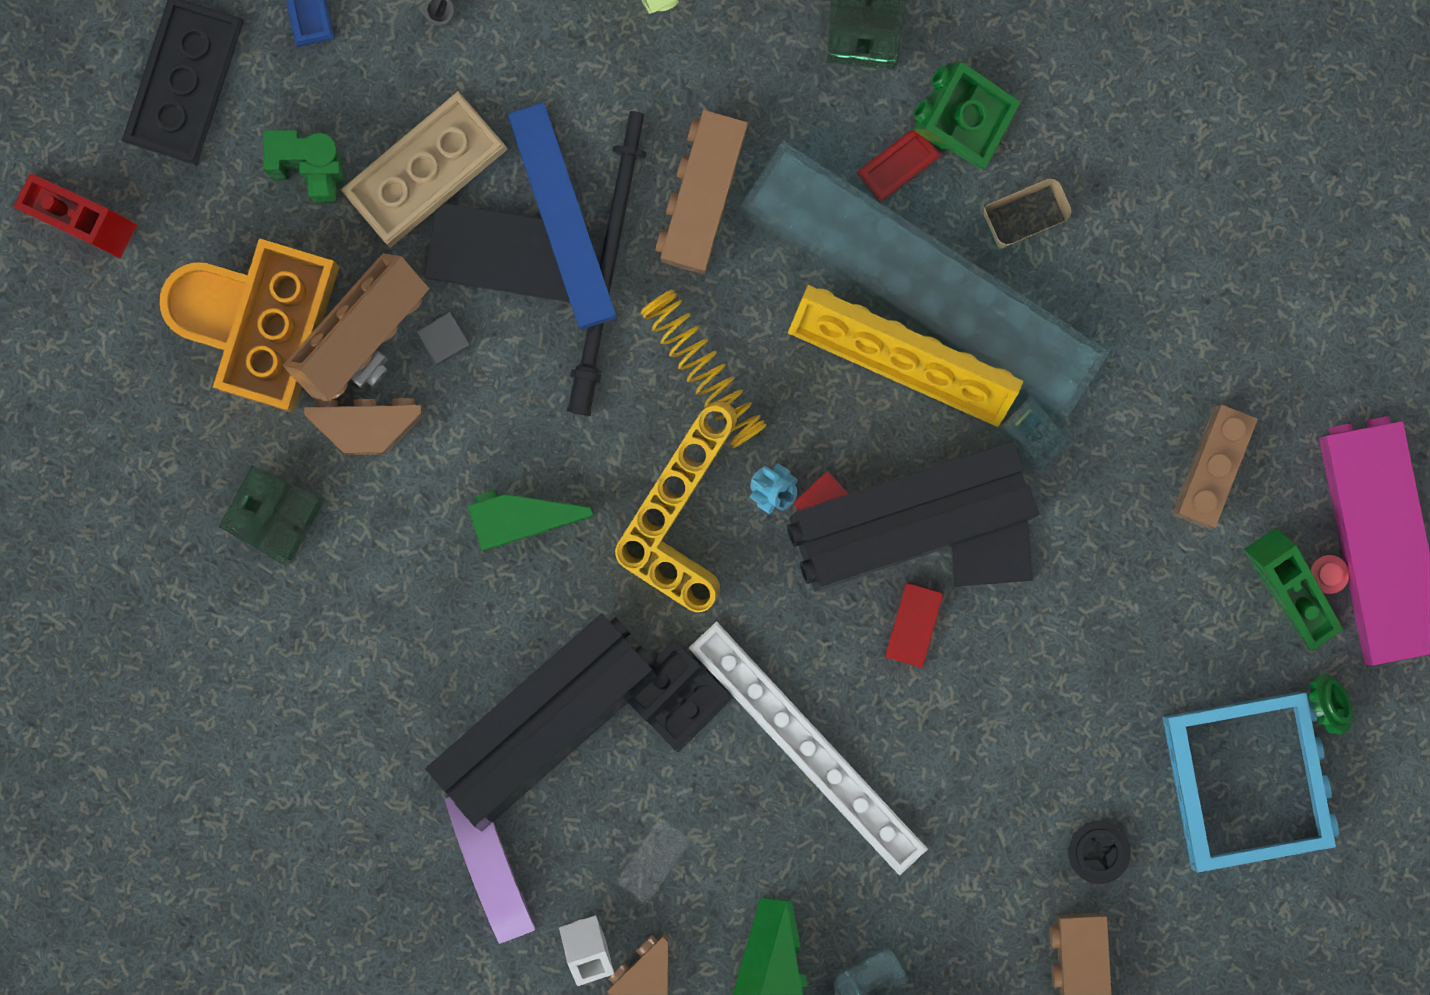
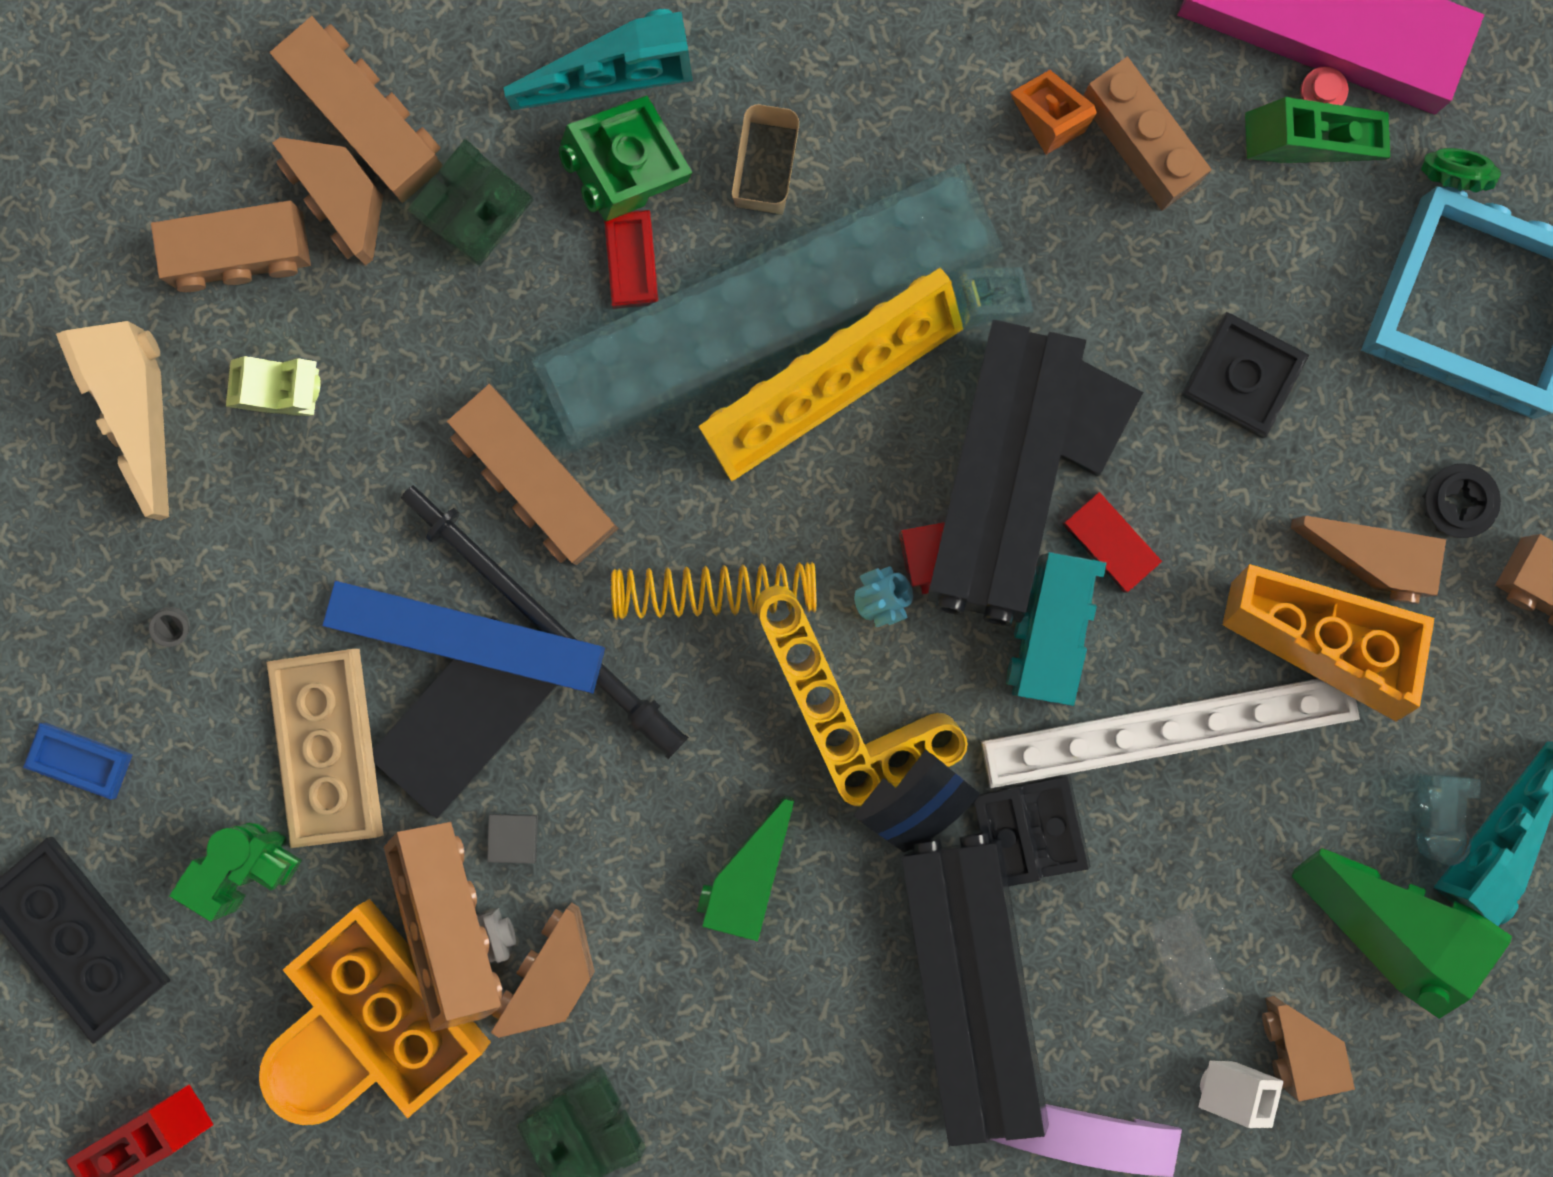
camera: 55 degrees left, 0 degrees up
(645, 602) = (919, 806): none -> black slope
(826, 620) = (1055, 629): none -> teal wedge
(944, 817) = (1336, 636): none -> light orange wedge
(1022, 819) = (1382, 558): none -> medium nougat slope
(1038, 73) = (630, 58): none -> teal wedge
(1091, 645) = (1245, 375): none -> black tile
(1191, 391) = (1053, 110): none -> orange slope

